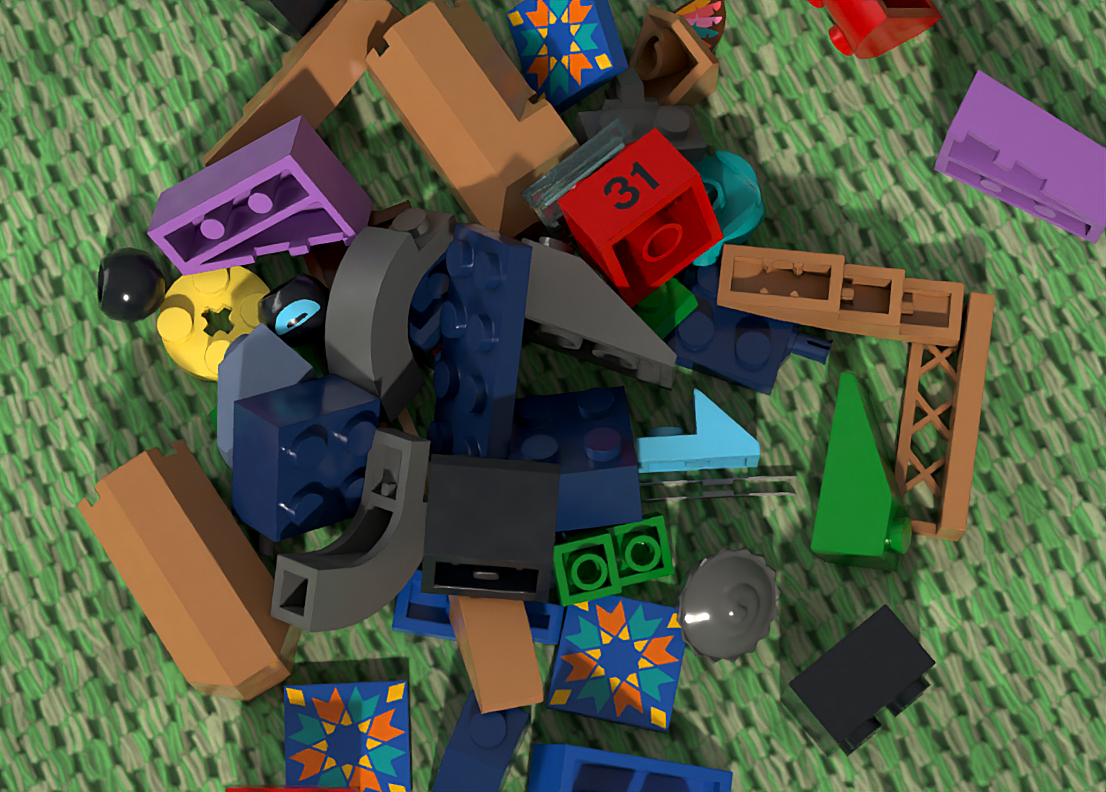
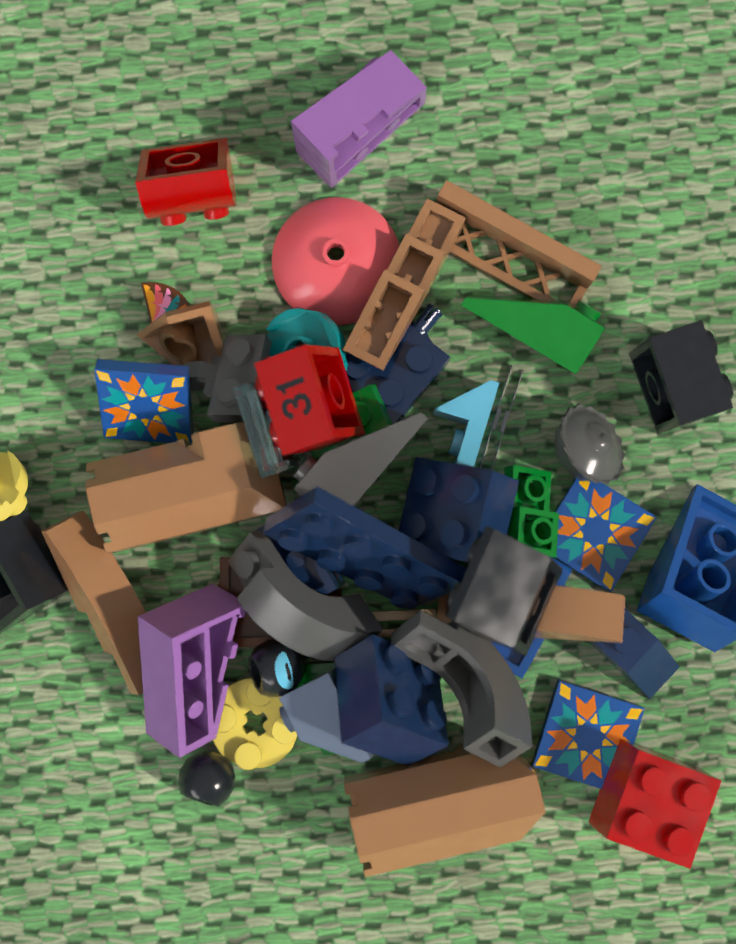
camera: 75 degrees left, 10 degrees up
(877, 230) = (325, 285): none -> coral dish

